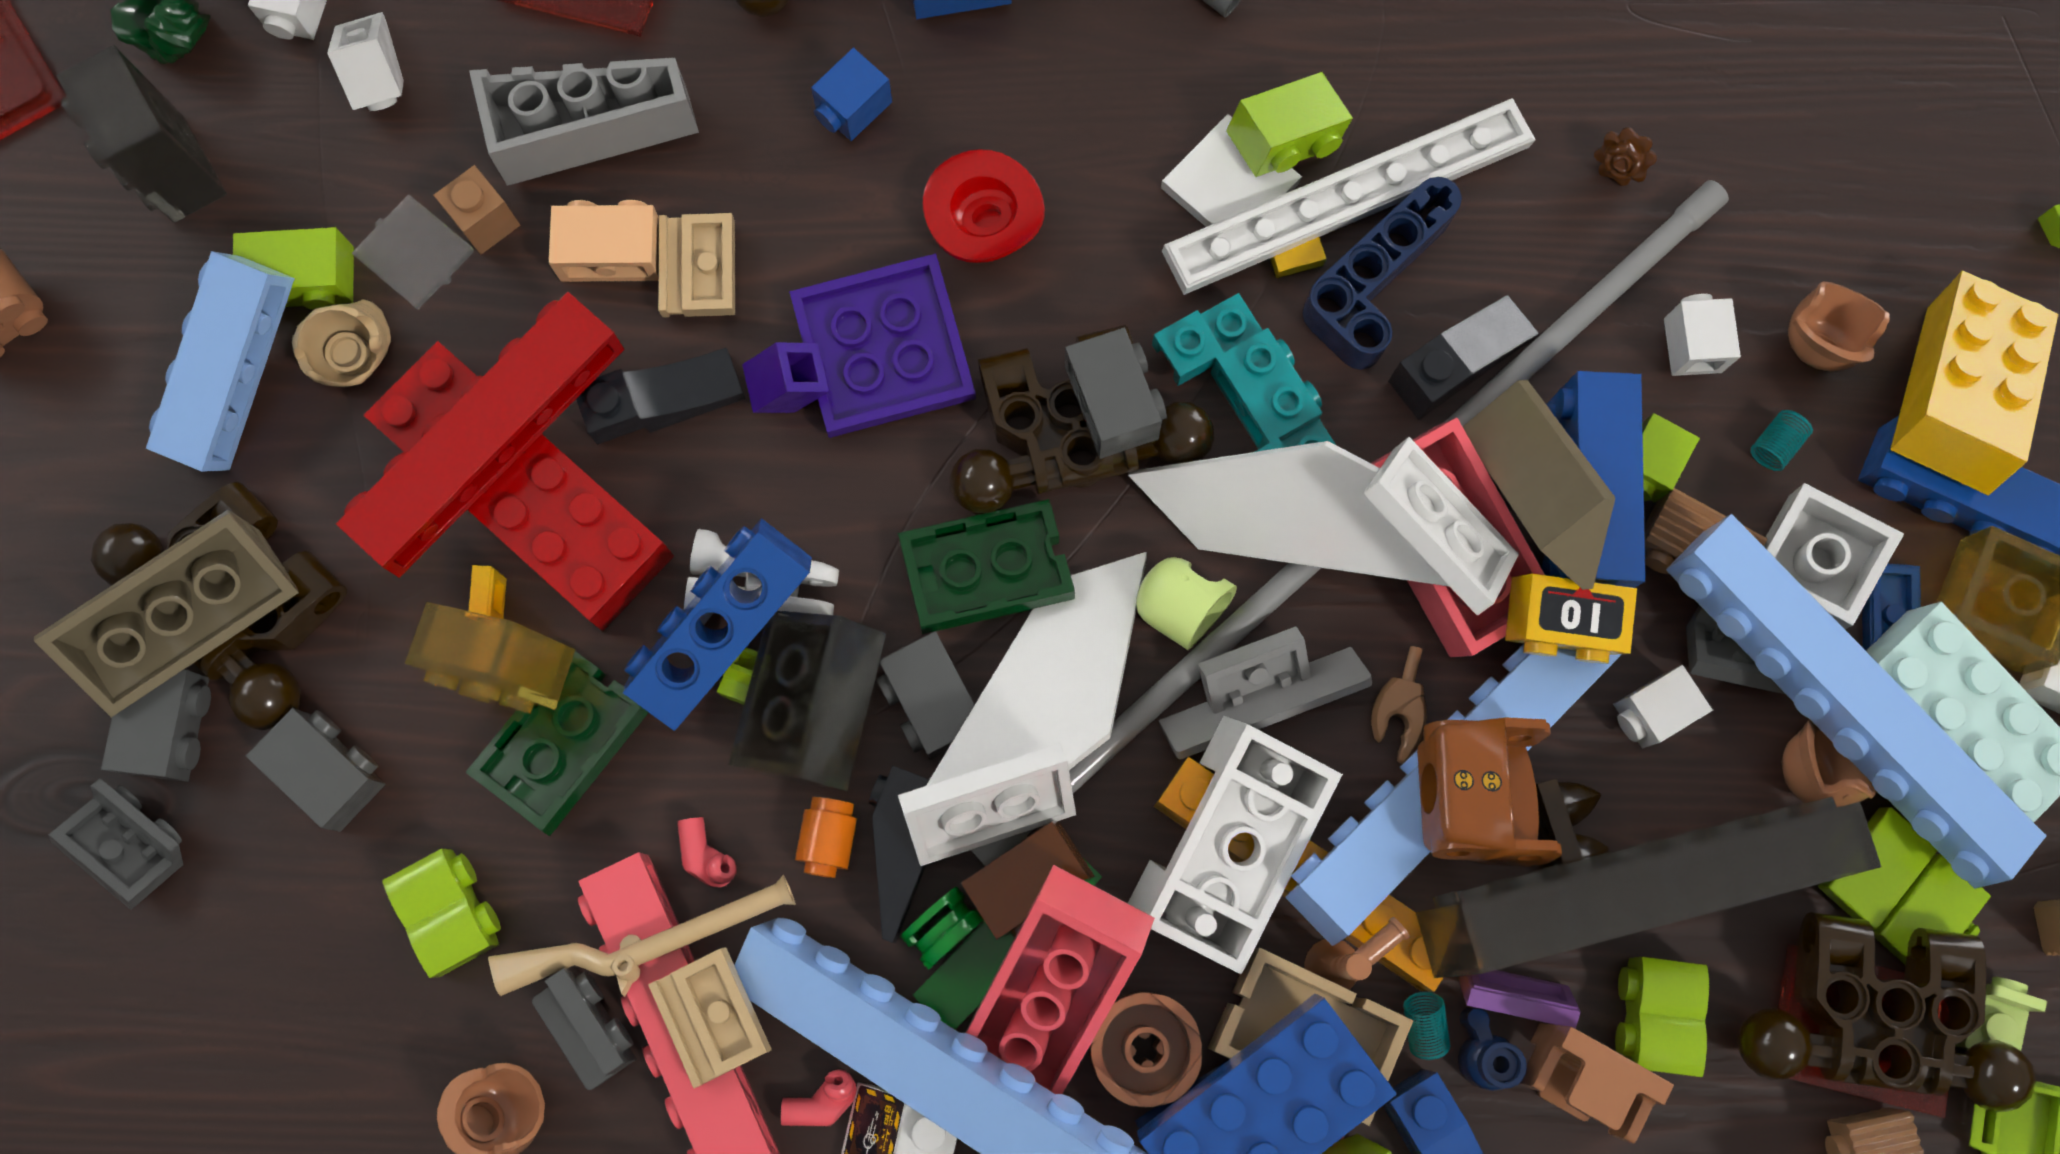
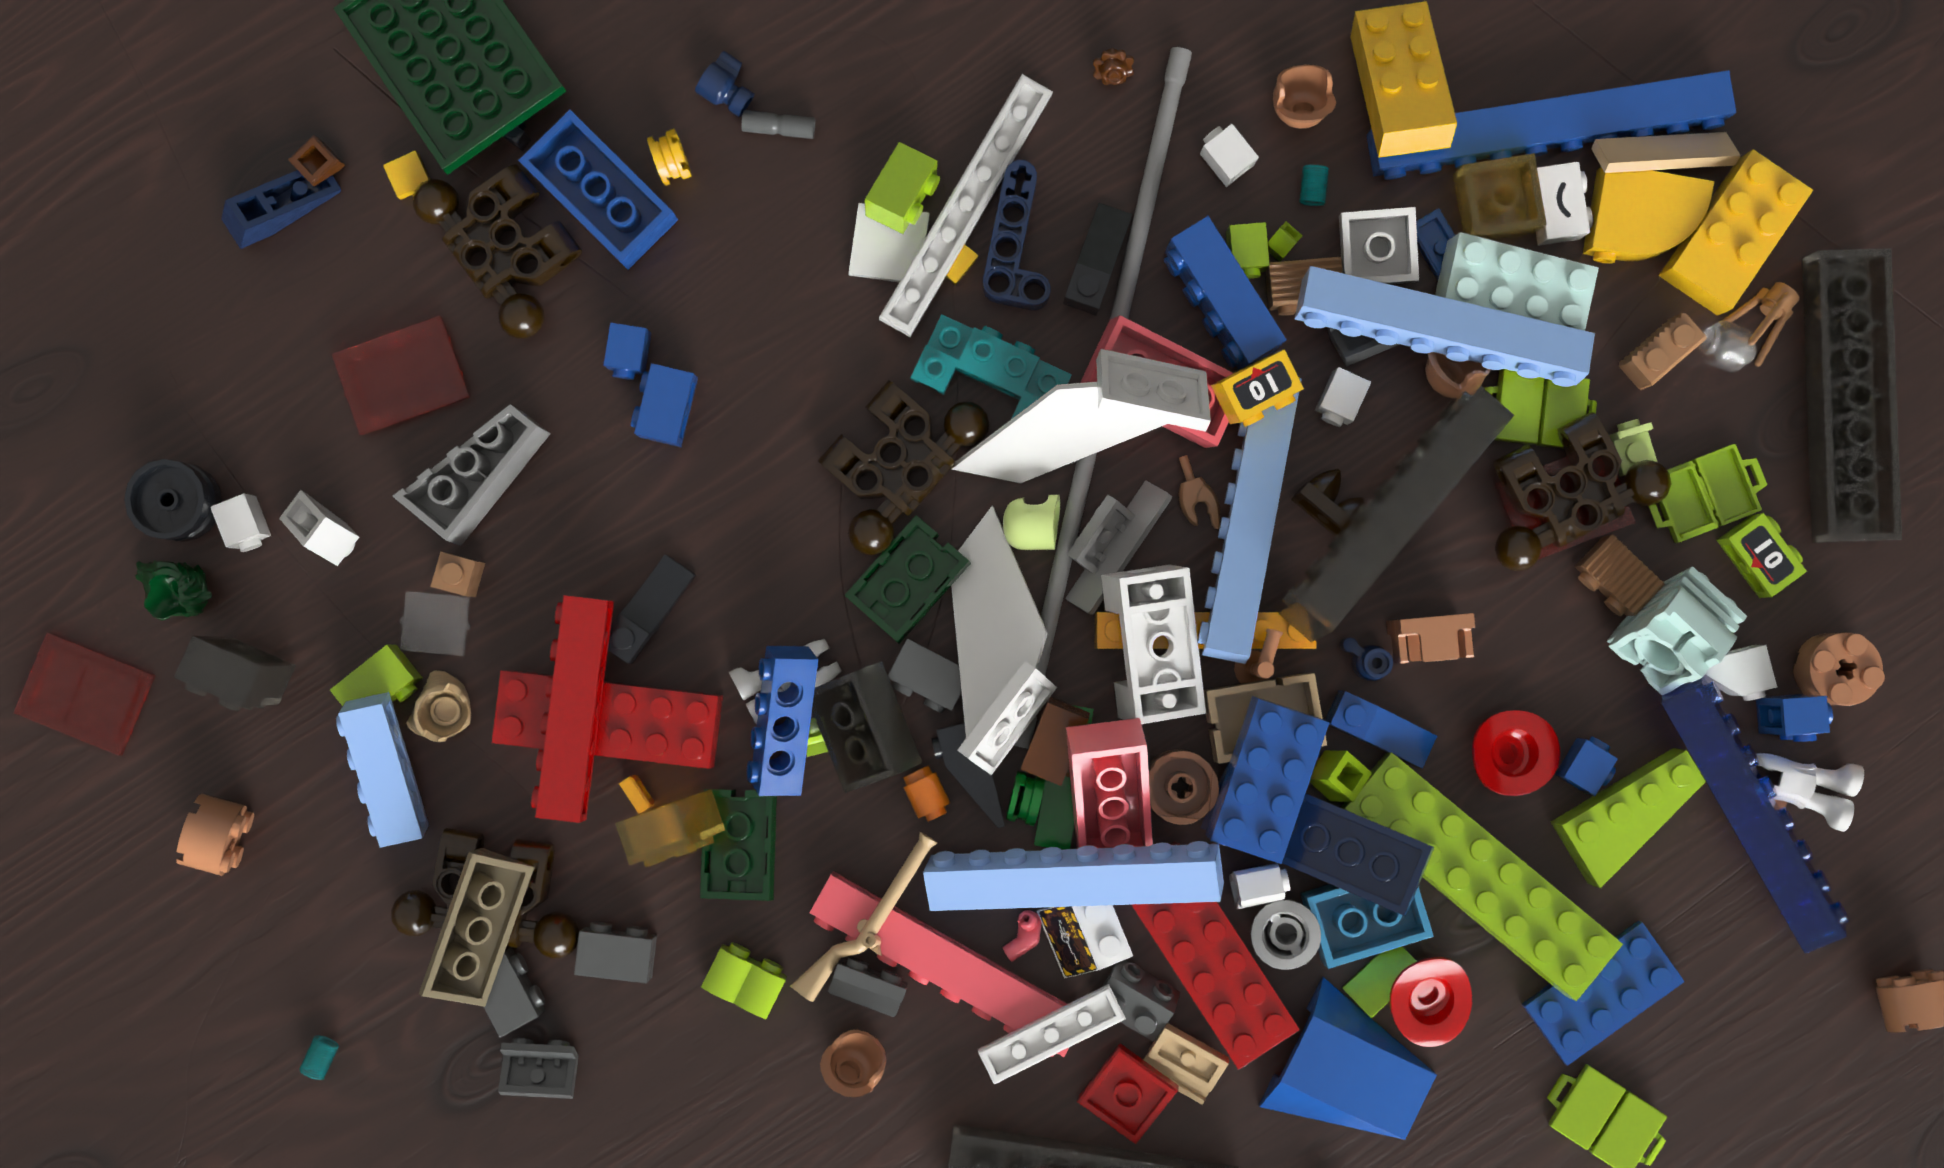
camera: 30 degrees left, 10 degrees up
(604, 242) = (547, 540): light nougat brick -> none
(697, 265) = (610, 516): tan plate -> none
(701, 859) = (865, 853): coral arm -> none
(709, 1017) = (935, 934): tan plate -> none
(785, 377) = (715, 550): dark purple brick -> none
(849, 181) = (664, 404): none -> blue brick
(884, 344) = (754, 489): dark purple plate -> none
(982, 206) = (755, 365): red hat -> none
(1114, 392) = (914, 432): dark grey brick -> none
(1416, 1025) = (1333, 664): teal piece -> none
(1482, 792) = (1271, 526): dark orange piece -> none
(1521, 997) = (1369, 615): medium lavender tile -> none
(1545, 480) = (1190, 322): dark tan slope -> none
(1664, 1015) = (1450, 572): lime brick -> none
(1704, 478) = (1283, 241): none -> lime piece

